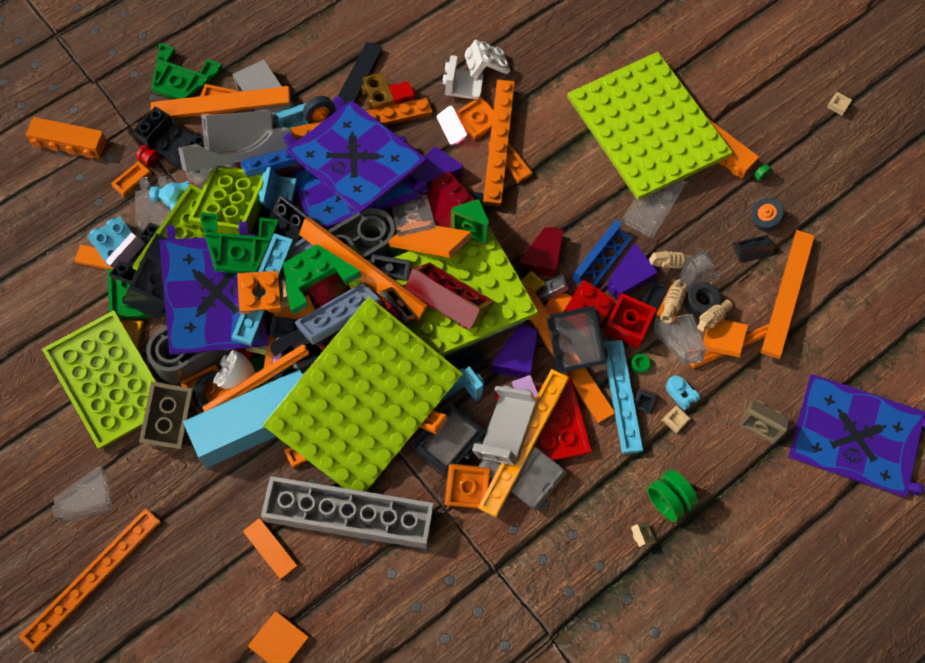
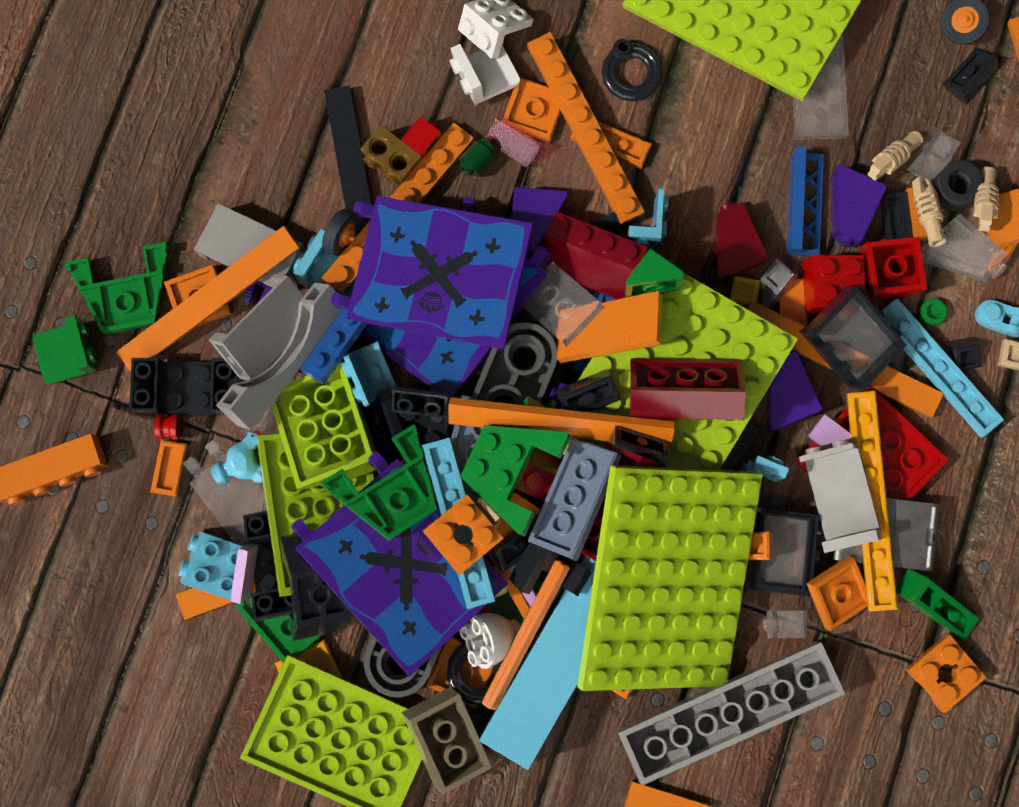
camera: 25 degrees left, 15 degrees up
(124, 86) = (65, 351): none -> green bracket
(420, 484) = (785, 624): none -> clear bracket
(426, 122) = (477, 157): none -> dark green brick
(498, 216) = (654, 235): none -> medium azure bracket
(511, 569) = (963, 678): none -> orange brick
(525, 534) = (936, 604): none -> green slope
(550, 120) = (638, 51): none -> black piece

